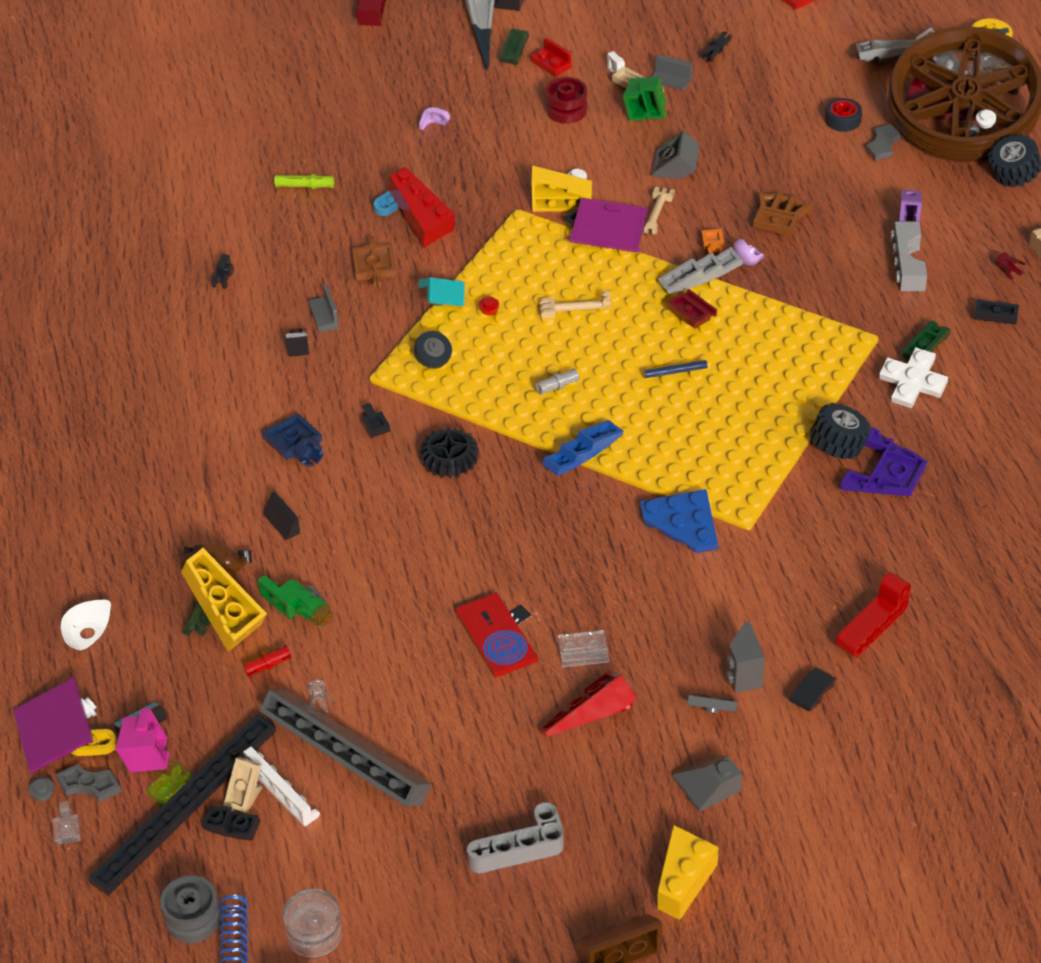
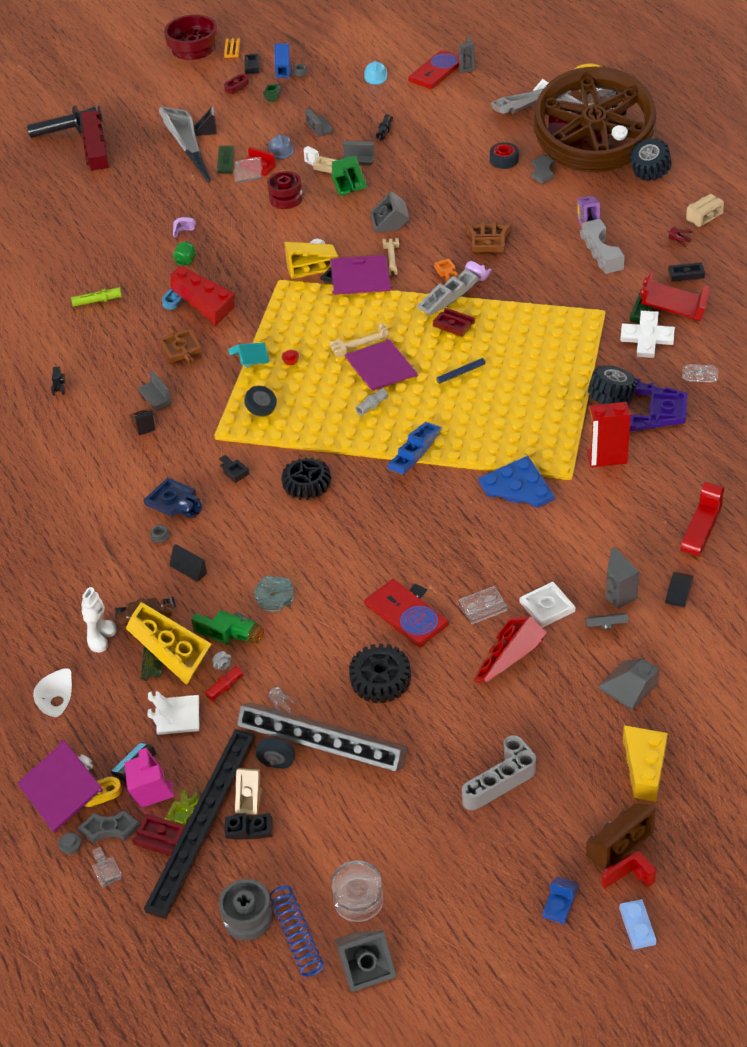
camera: 15 degrees left, 0 degrees up
(133, 804) = (158, 834): none -> dark red plate
(156, 563) = (96, 625): none -> white piece
(203, 680) = (175, 713): none -> white plate
(265, 476) = (159, 534): none -> dark grey plate
(274, 635) = (221, 660): none -> light grey plate
(282, 789) = (283, 787): white hinge -> none
(287, 751) = (275, 753): none -> black wheel
(361, 565) = (270, 584): none -> clear light blue plate
(421, 152) = (184, 253): none -> green head
(437, 695) = (380, 673): none -> black wheel
(535, 65) = (248, 170): none -> clear piece
(586, 45) = (281, 147): none -> sand blue piece
(587, 340) = (380, 365): none -> magenta piece
(641, 25) = (317, 123): none -> dark grey panel
(656, 667) = (547, 604): none -> white tile
(803, 488) = (609, 434): none -> red panel
(956, 440) = (700, 373): none -> clear plate
(963, 341) = (674, 299): none -> red panel

